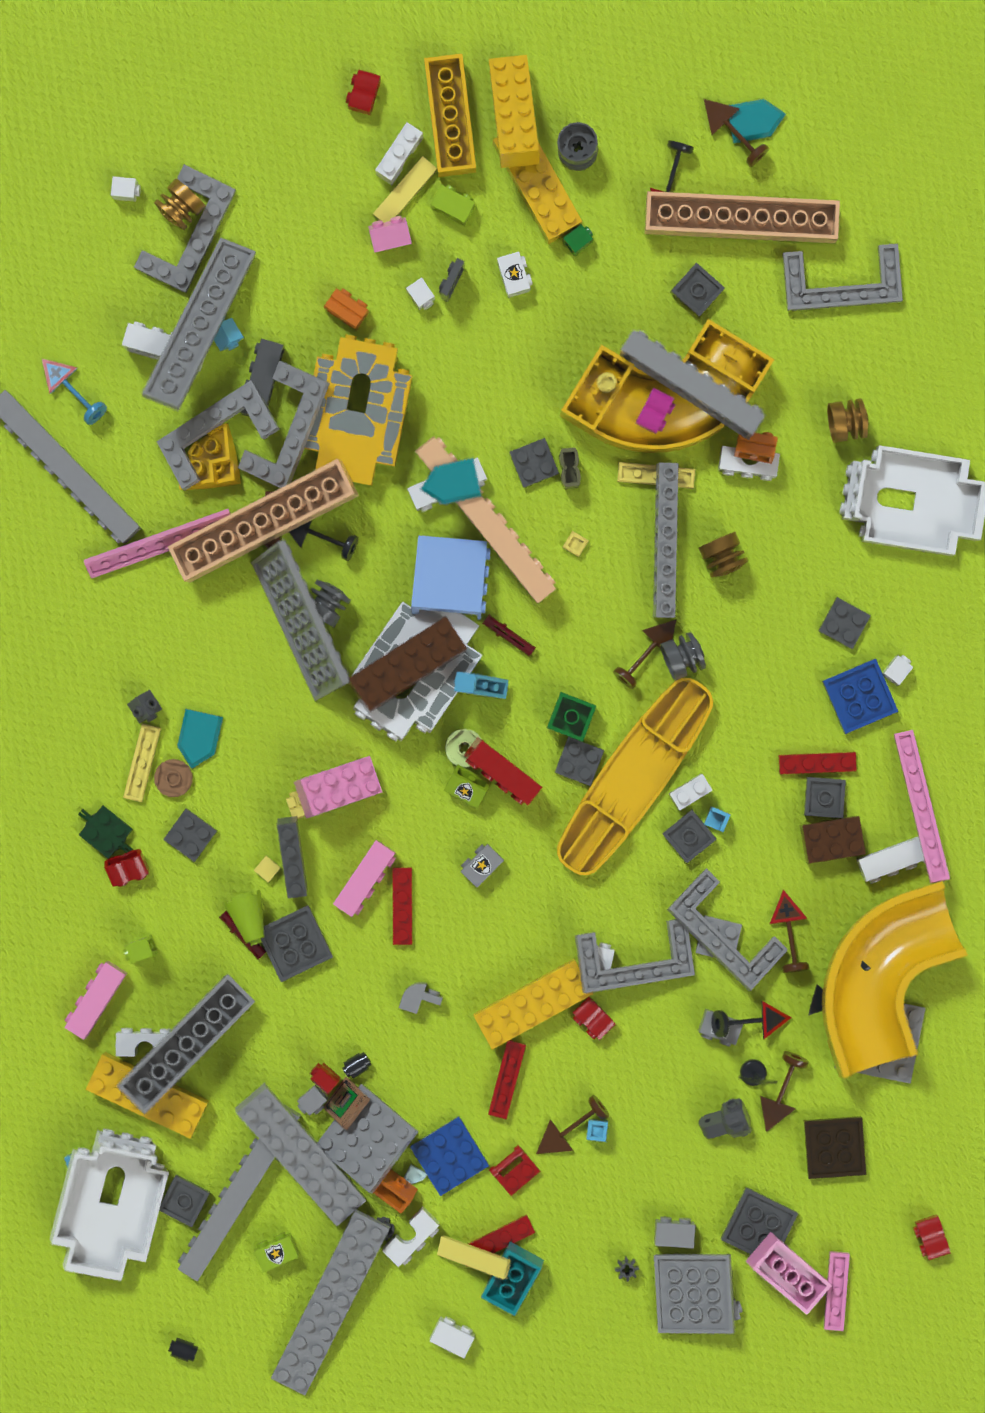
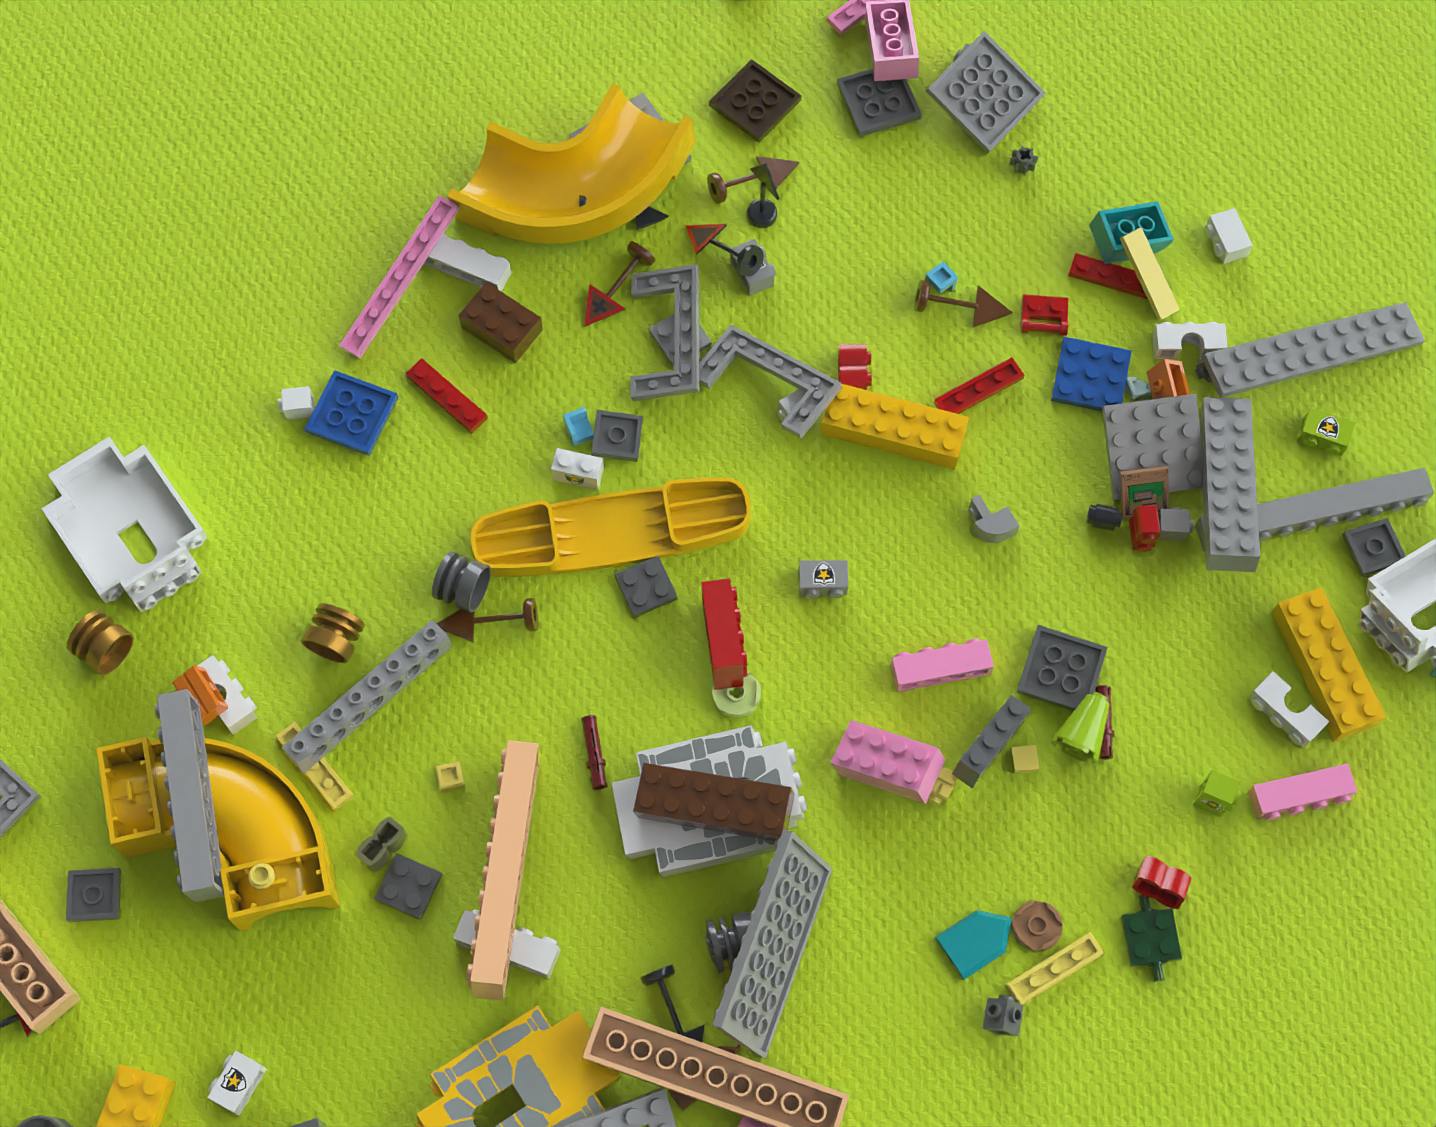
camera: 135 degrees left, 20 degrees down
(185, 1044) = (1253, 667): light grey brick -> none
(190, 835) = (1070, 858): dark grey plate -> none
(402, 906) = (929, 612): red plate -> none
(450, 575) = (592, 852): light blue panel -> none
(453, 482) = (497, 921): teal tile -> none
(467, 786) = (767, 655): lime brick -> none
(481, 685) = (665, 724): medium azure brick -> none
(571, 716) = (613, 625): green brick -> none
(578, 239) = (143, 1054): green brick -> none
(655, 410) = (249, 808): dark pink brick -> none
(674, 1233) = (955, 151): light grey brick -> none
(730, 1120) = (820, 190): dark grey piece -> none
(824, 797) = (470, 362): dark grey plate -> none
(844, 623) = (297, 484): dark grey plate -> none

